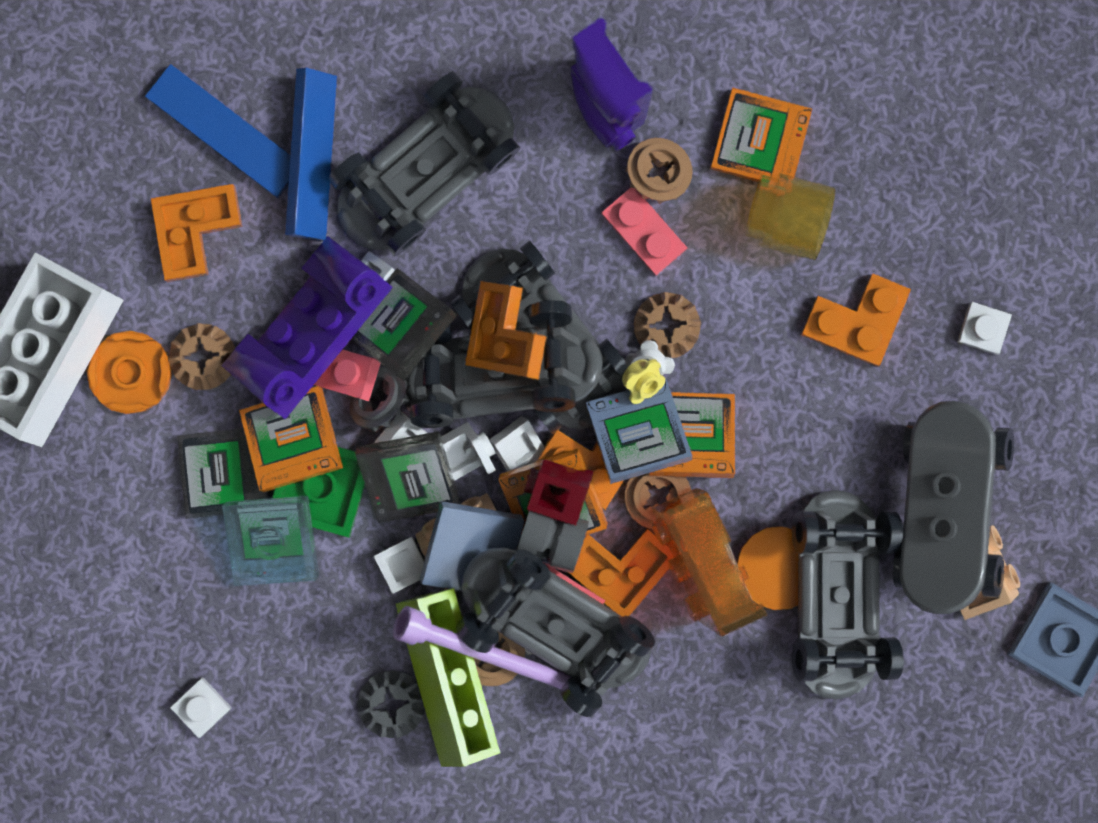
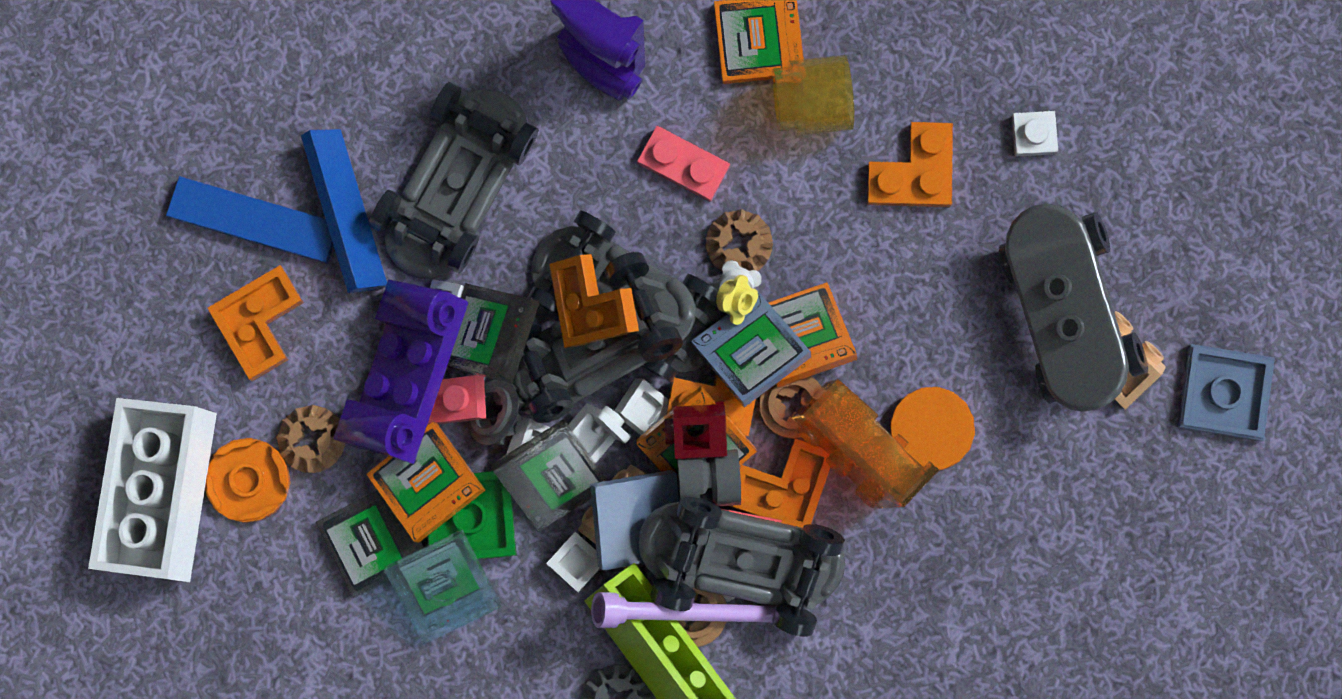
camera: 20 degrees left, 5 degrees down
(661, 153) = (671, 86): medium nougat gear -> none
(840, 595) = (999, 430): dark grey piece -> none

